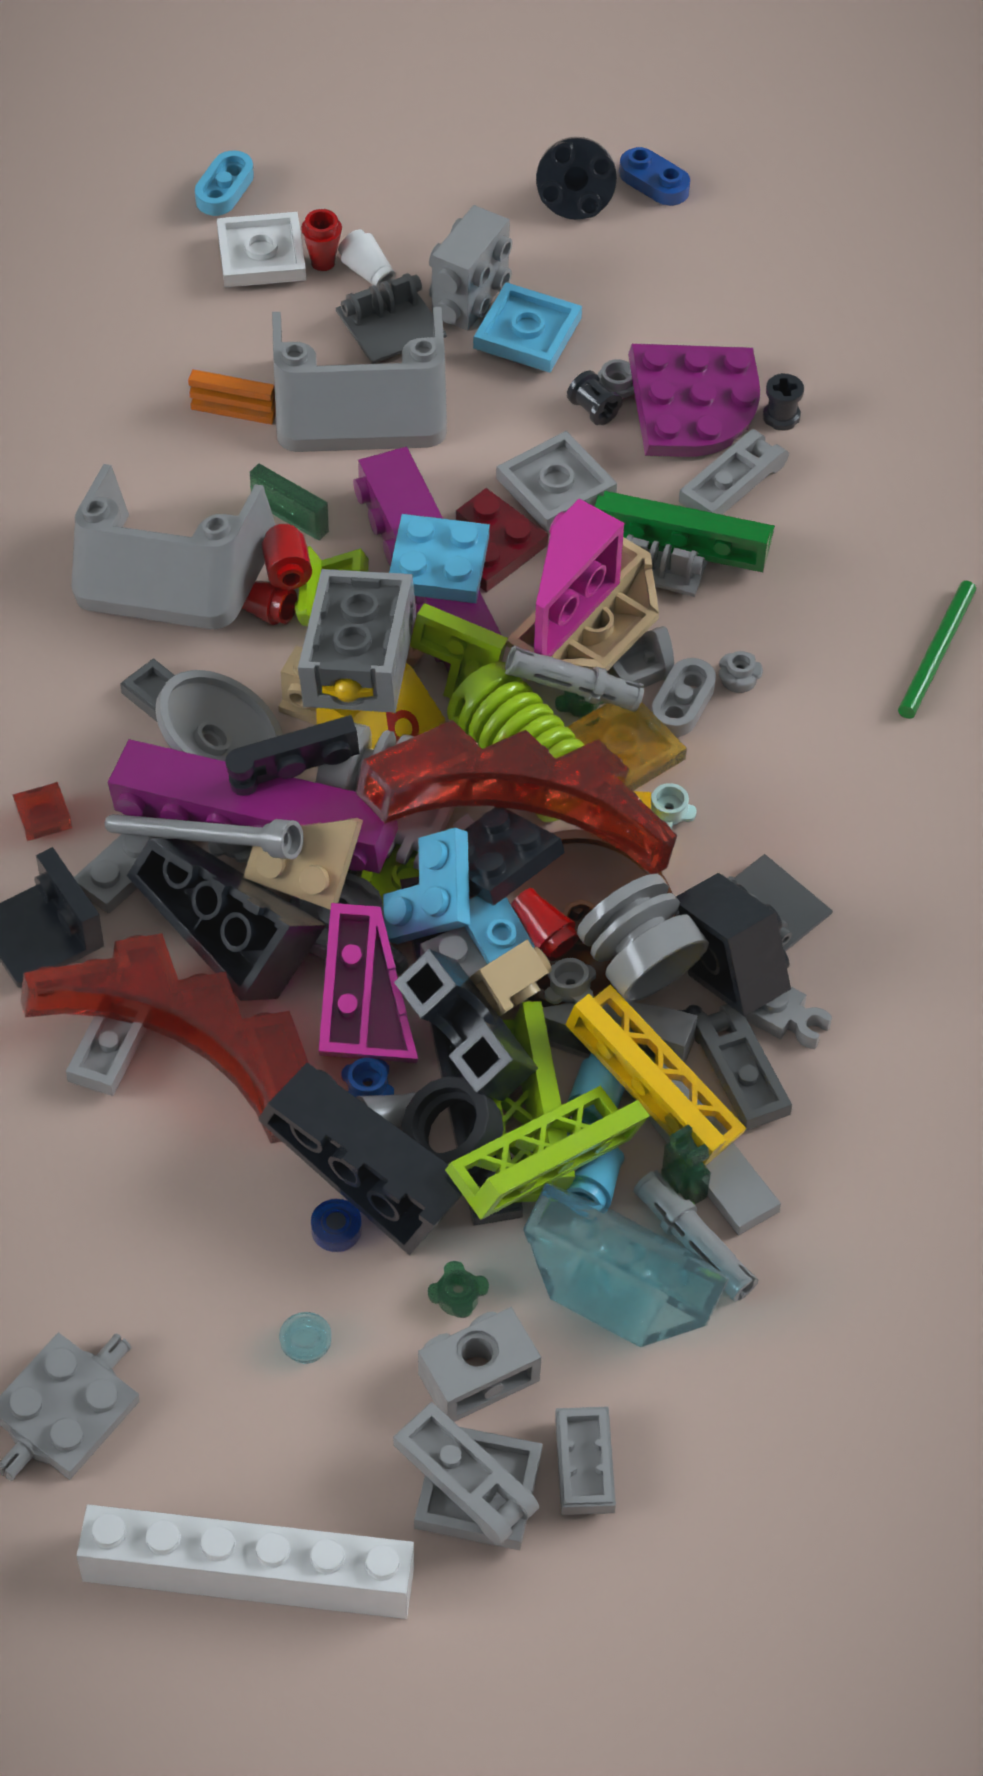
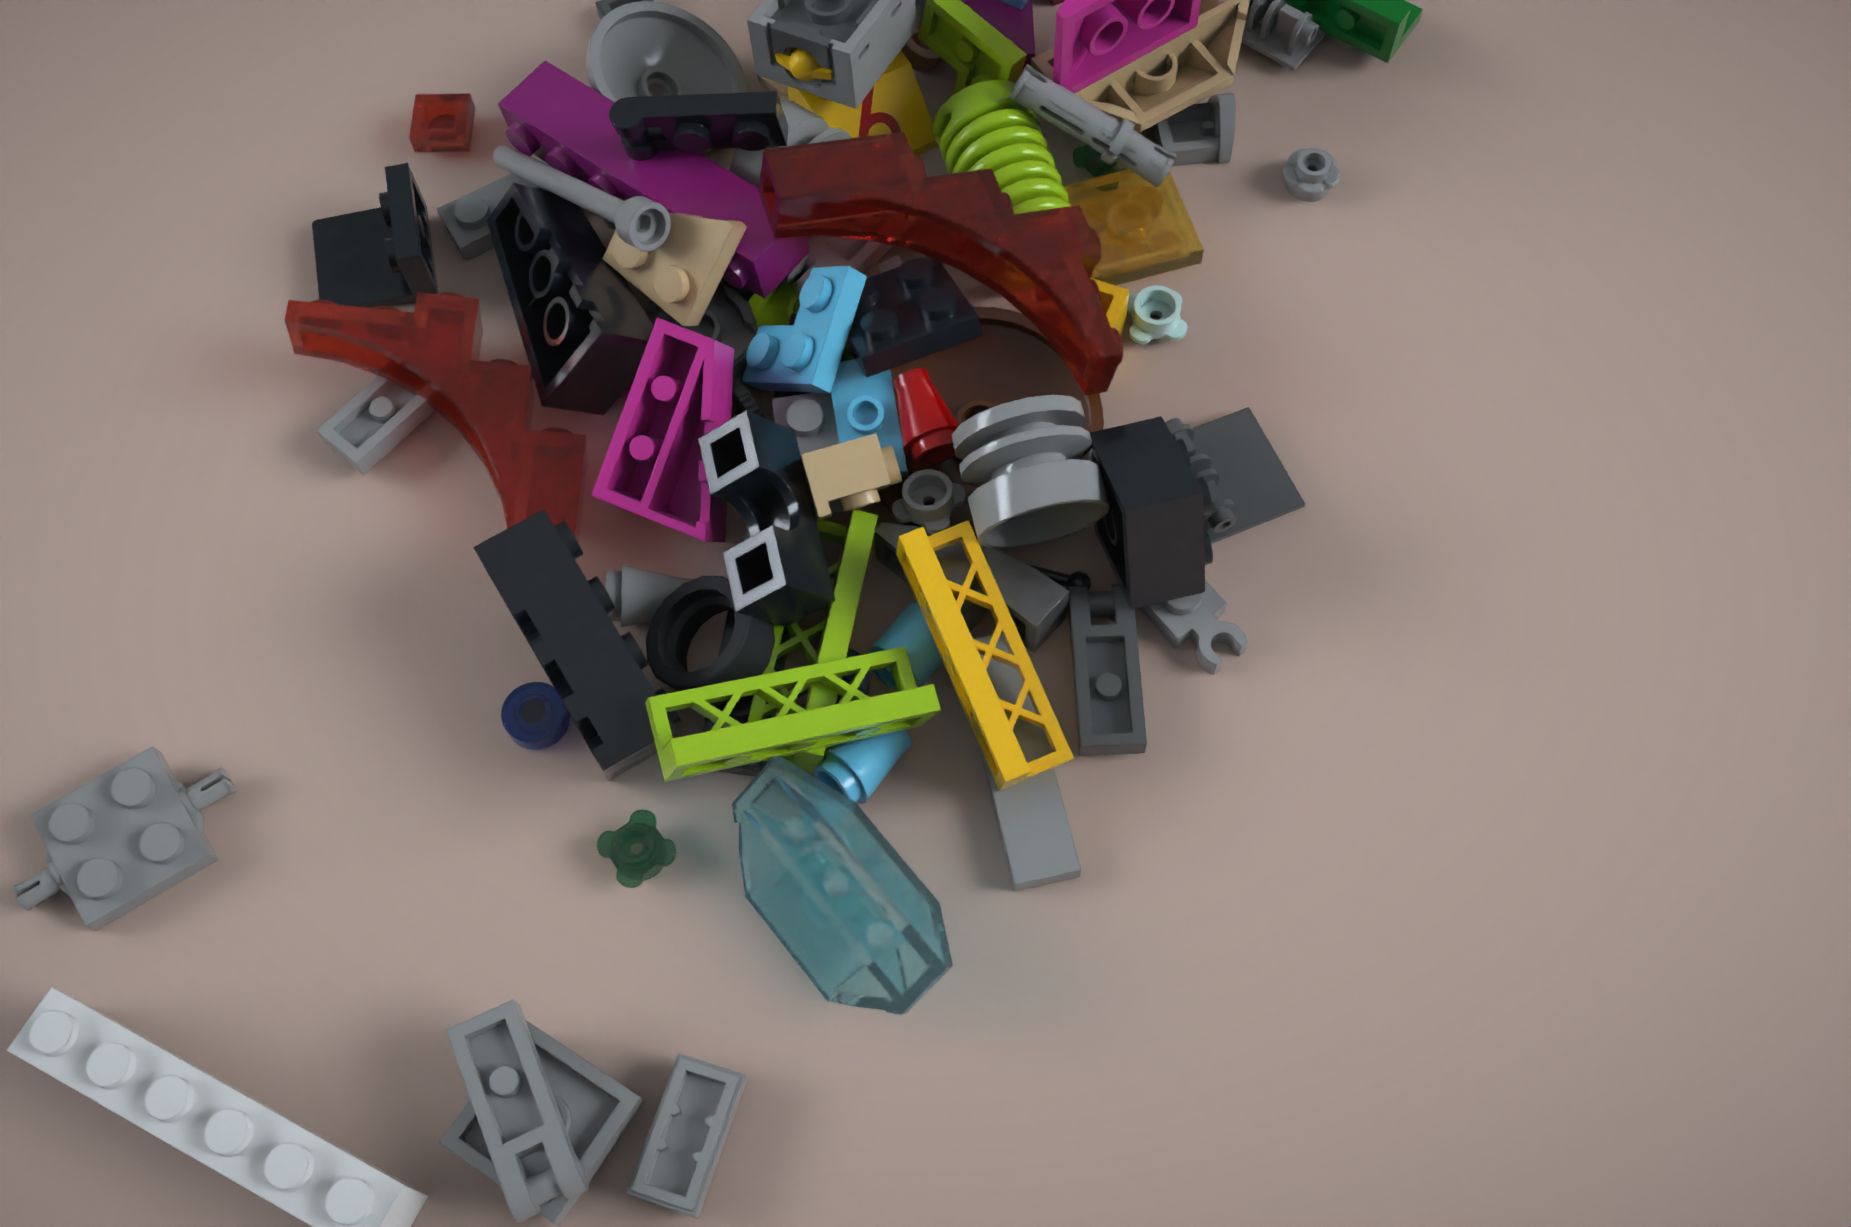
camera: 25 degrees right, 10 degrees up
(305, 1337) = (432, 847): clear light blue plate -> none
(367, 1070) = (648, 533): blue plate -> none
(464, 1388) = (647, 976): light grey brick -> none
(680, 1219) = (946, 850): light grey pin -> none
(682, 701) = (1222, 189): light grey plate -> none
(684, 1166) = (974, 785): clear green plate -> none
(937, 650) = (1569, 212): green bar -> none

